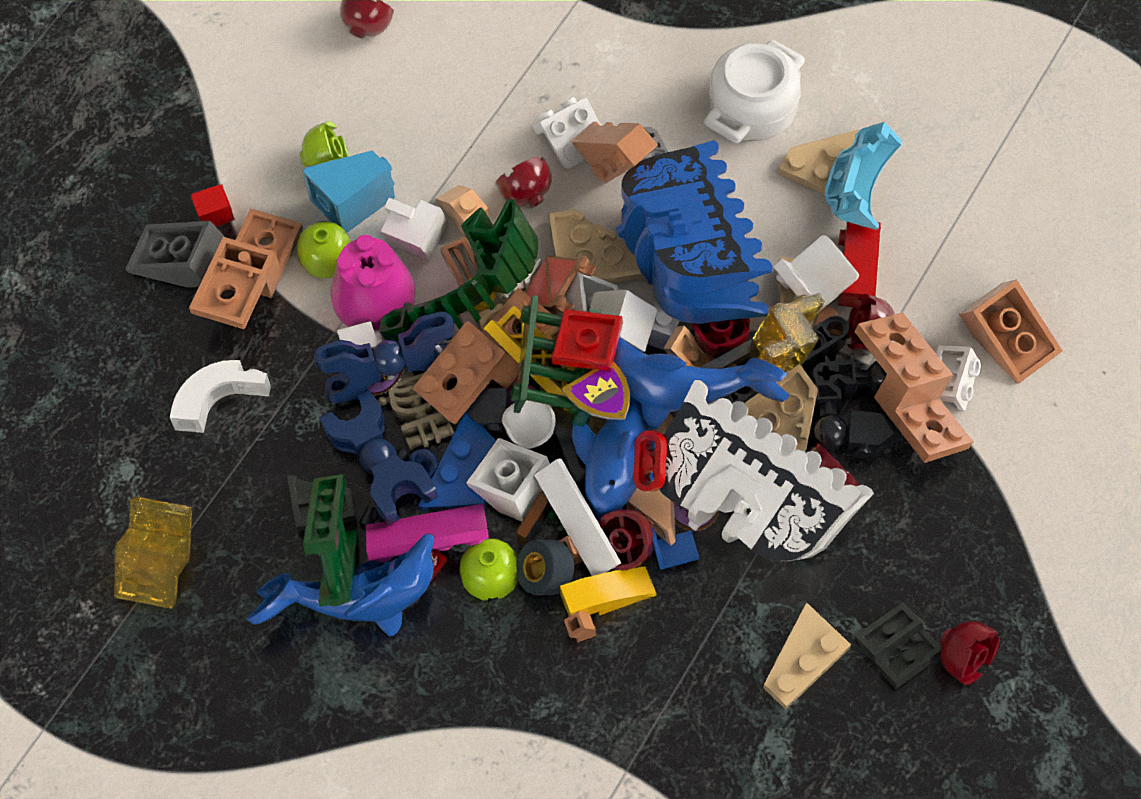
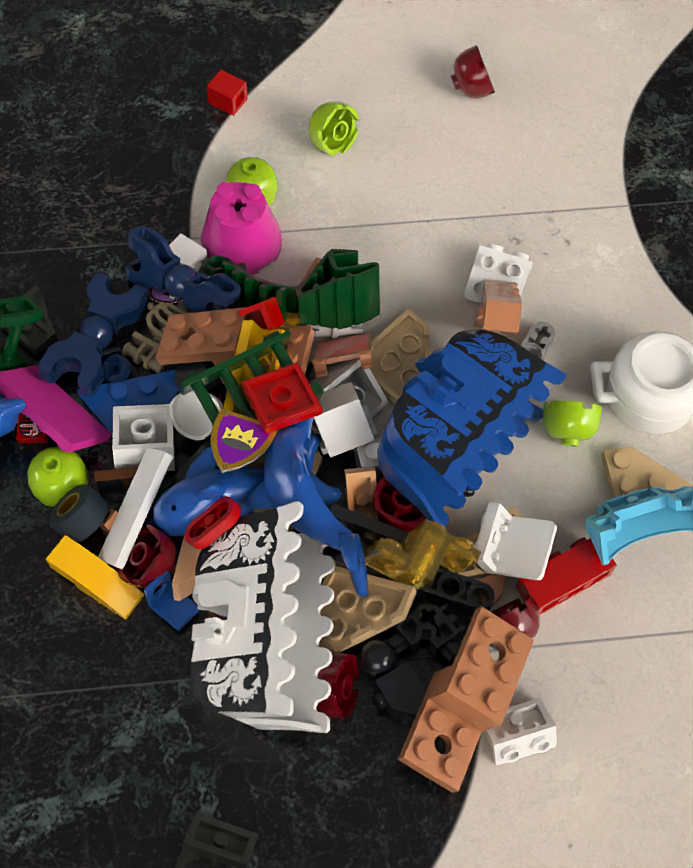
camera: 50 degrees right, 0 degrees up
(175, 252) = (172, 99): dark grey slope -> none
(210, 385) = (73, 186): white arch -> none
(246, 268) = (182, 139): nougat bracket -> none
(350, 187) = (311, 162): dark azure slope -> none
(414, 229) = (312, 225): white plate -> none
(460, 204) = (366, 243): light nougat slope -> none
(484, 310) = (265, 314): none -> red panel
(527, 182) = (420, 274): dark red cylinder -> none
(586, 625) = (49, 578): nougat piece -> none
(745, 168) = (571, 421): none -> lime cylinder
(805, 657) = (147, 782): tan wing -> none
(1011, 330) = (608, 754): nougat slope -> none

